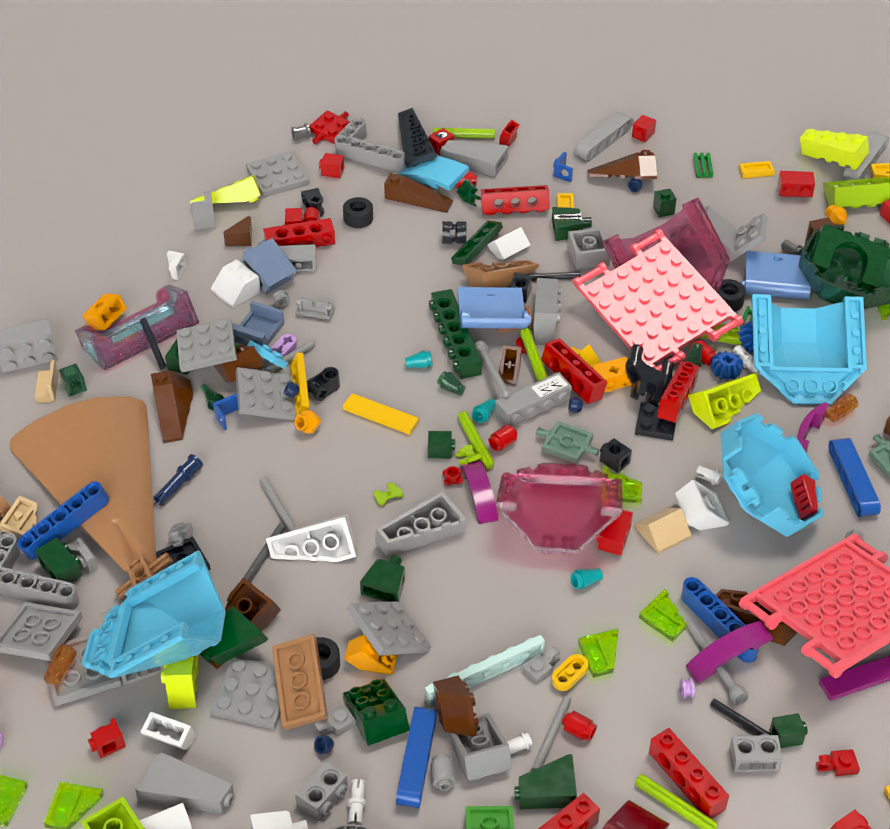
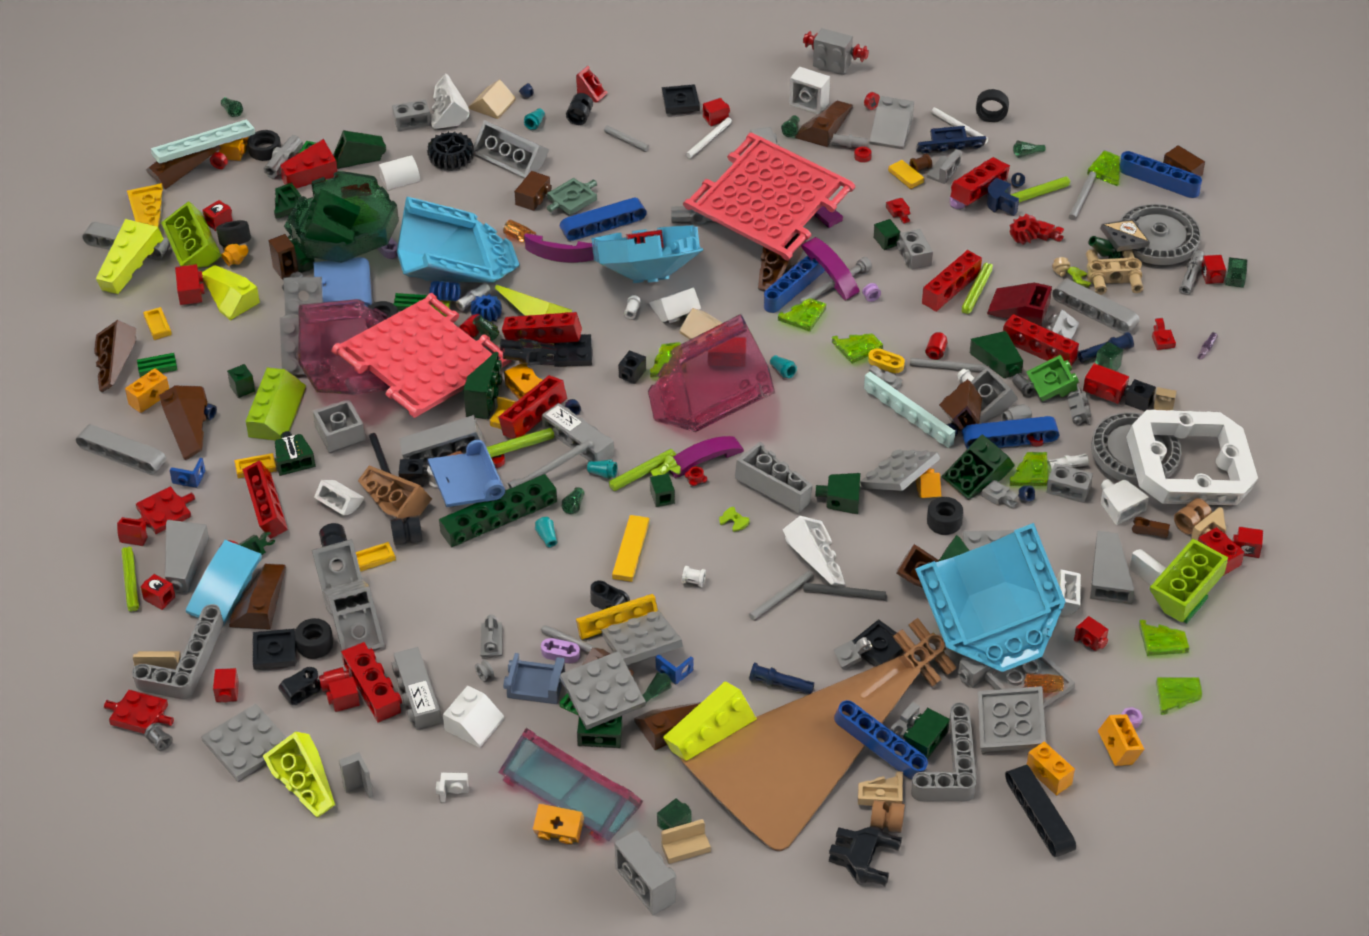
camera: 105 degrees left, 0 degrees up
(148, 416) = (710, 722): none -> neon yellow wedge
(153, 344) = (599, 756): black bar -> none
(239, 234) = (376, 738): reddish brown slope -> none
(266, 352) = (594, 636): medium azure plate -> none
(269, 264) = (439, 684): sand blue panel -> none
(291, 389) = (639, 610): dark blue hinge -> none
(299, 682) = (983, 511): medium nougat plate -> none
(307, 421) = (668, 595): light orange rock -> none
(324, 446) = (693, 576): none -> white bush
(357, 761) = (1031, 471): none -> clear neon green wing
(358, 188) = (274, 649): none -> black plate
(374, 134) = (164, 659): none -> tan panel
(381, 223) = (347, 595): none -> light grey bracket
(414, 139) = (161, 613): black wing -> none
(436, 257) = (375, 556): none -> yellow tile
(451, 273) = (406, 530): none -> black wheel
(476, 243) = (353, 524): dark green plate -> none
(494, 798) = (1027, 388): none -> flat silver pin
(503, 438) = (637, 447): red brick -> none
(510, 363) = (534, 457): reddish brown slope -> none
(530, 154) = (162, 507): none -> red plate
(567, 442) = (625, 402): sand green plate -> none
(607, 337) = (483, 388): none -> dark green slope
(626, 216) = (274, 404): none -> lime slope
(643, 128) = (100, 415): red brick -> none
(667, 152) = (146, 390): none -> light orange brick
(726, 140) = (113, 349): none -> reddish brown wedge
(738, 718) = (882, 267): black bar -> none
(790, 211) = (230, 291): none -> neon yellow wedge
(862, 215) = (233, 232): none -> black tyre

